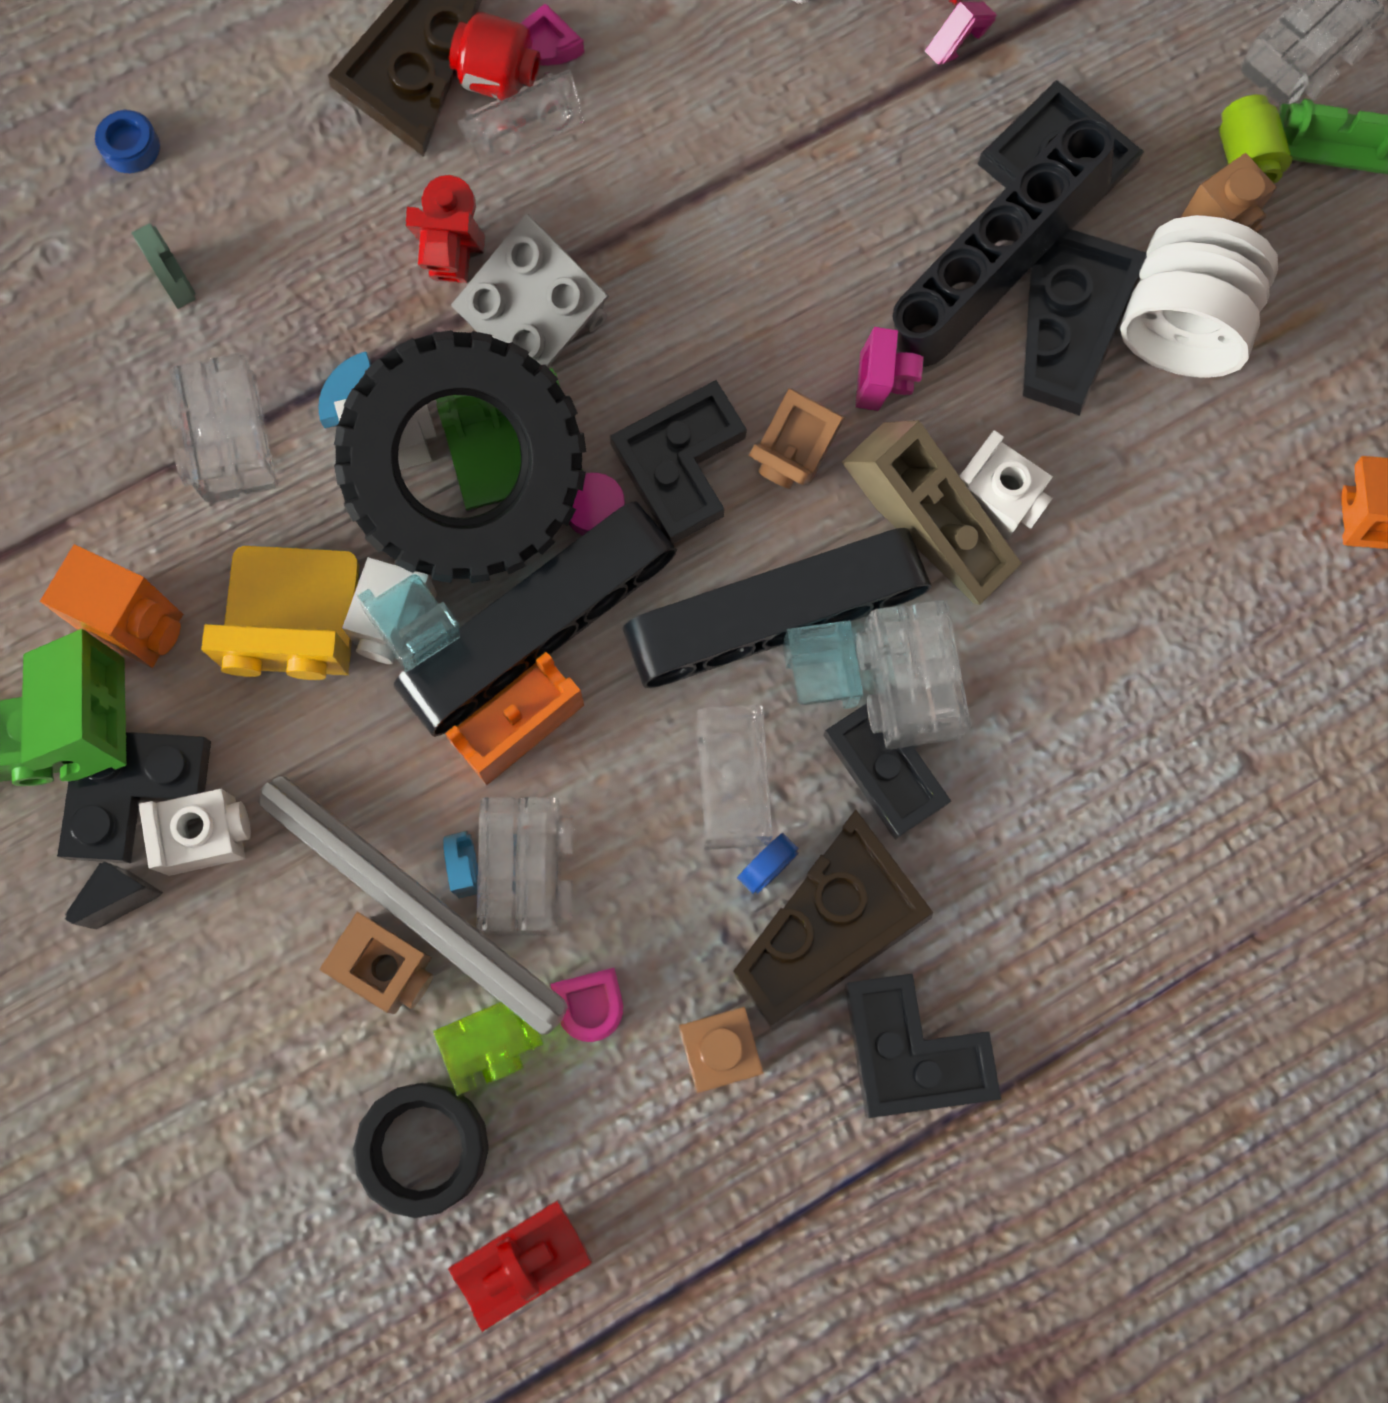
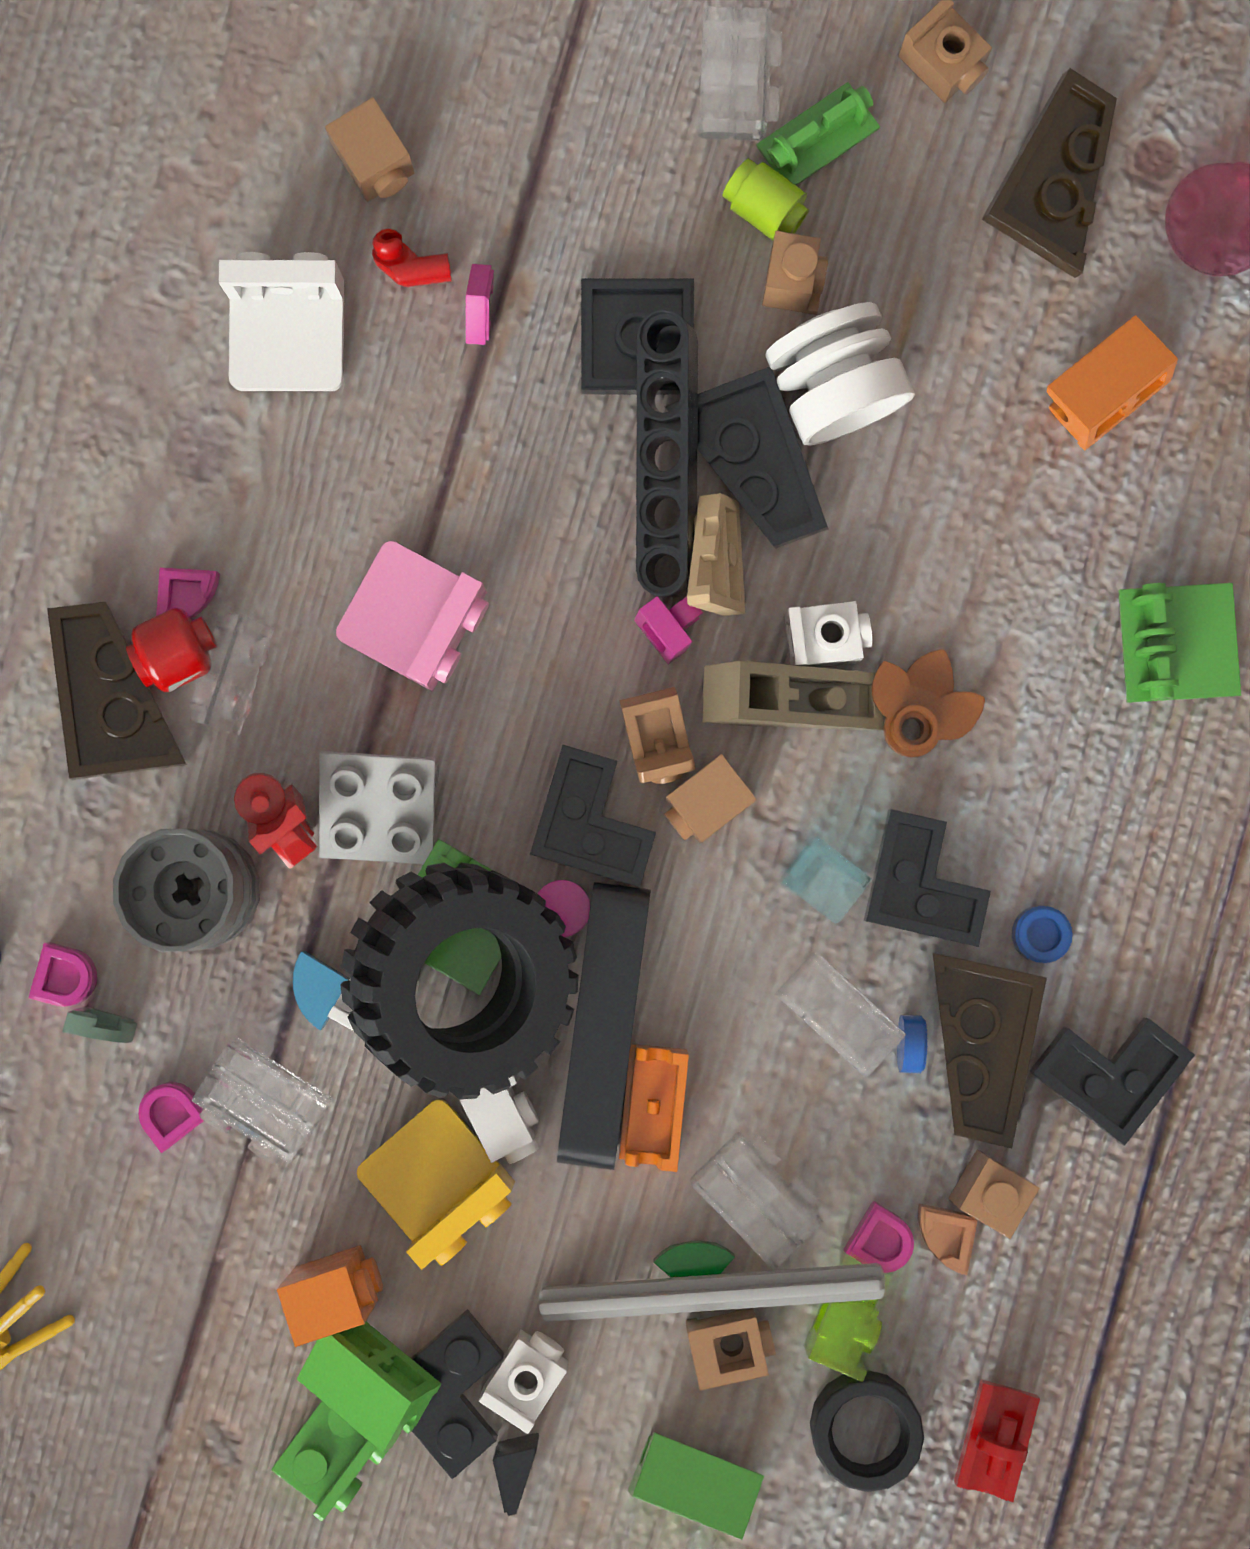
camera: 40 degrees left, 10 degrees up
(143, 380) = (169, 1114): none -> dark pink tile
(178, 214) = (63, 976): none -> dark pink tile
(238, 1052) = (696, 1485): none -> bright green hinge
(327, 217) = (155, 885): none -> dark grey wheel
(410, 621) = (536, 1119): clear light blue panel -> none
(423, 867) = (694, 1259): none -> green tile
(461, 864) = (714, 1232): dark azure tile -> none
(647, 1055) = (948, 1235): none -> nougat tile
(697, 194) = (412, 615): none -> bright pink bracket
(759, 610) = (755, 866): black beam -> none
(787, 522) = (708, 801): none -> medium nougat brick
(914, 675) = (895, 836): clear brick -> none
(960, 882) = (1042, 934): none -> blue tile
(970, 350) = (716, 560): none -> tan wing
(1038, 609) = (927, 697): none -> dark orange plate
(1292, 755) = (1179, 642): none -> bright green hinge

